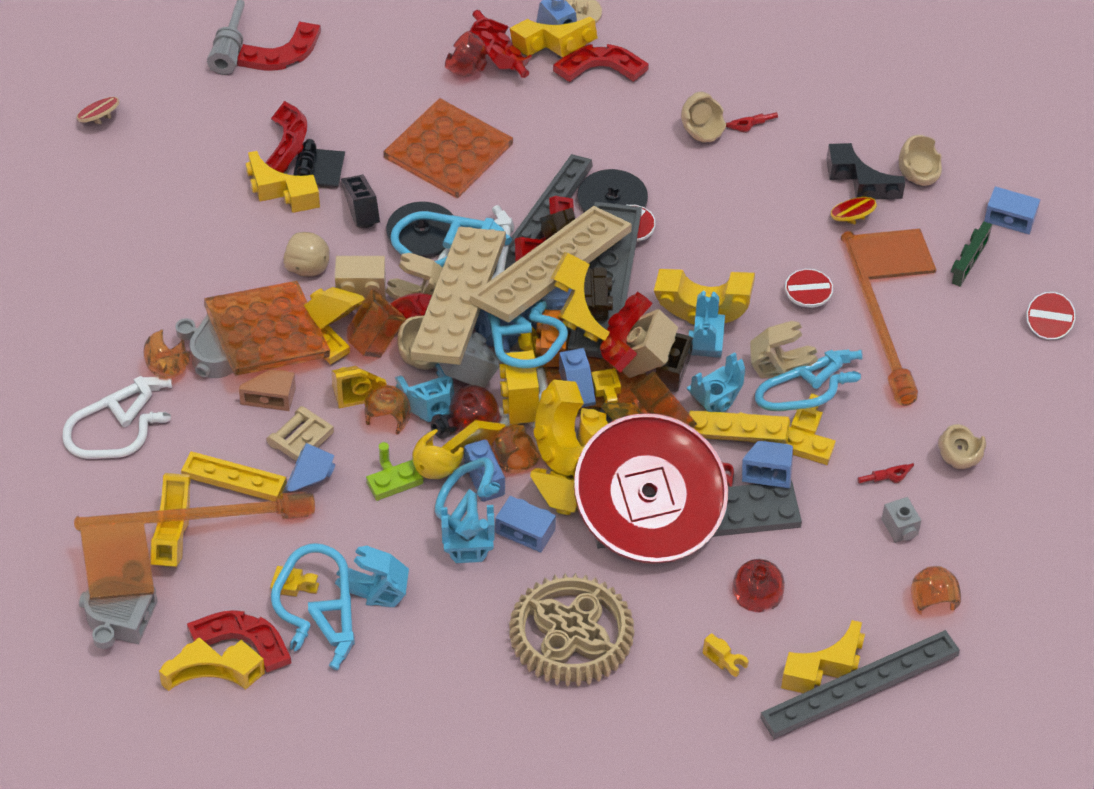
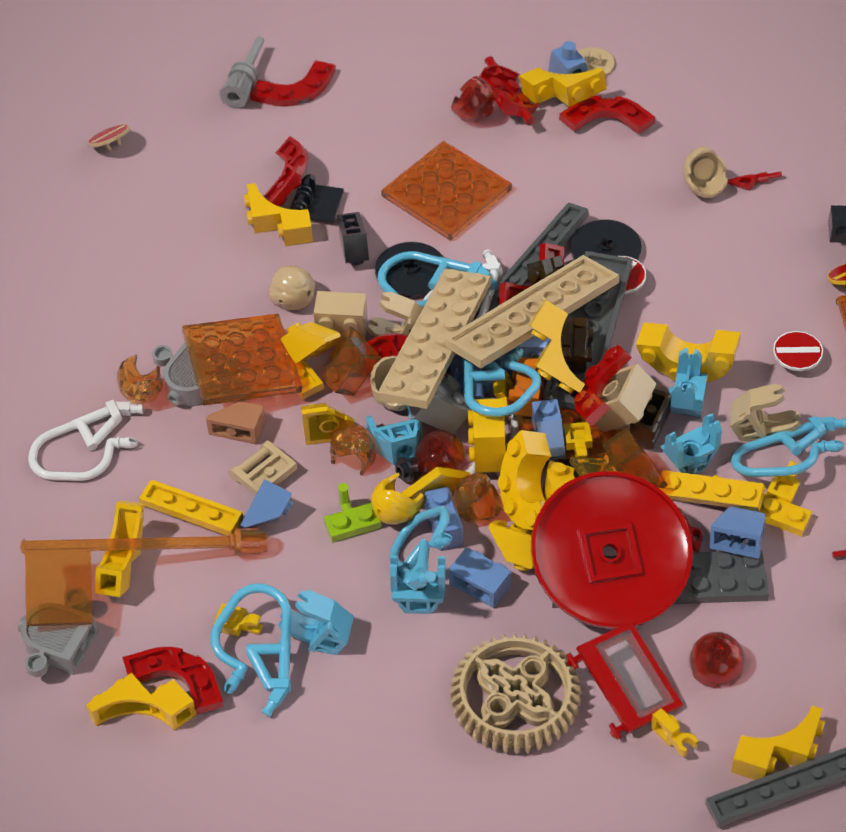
camera: 10 degrees right, 0 degrees up
(676, 607) = (627, 677): none -> piece

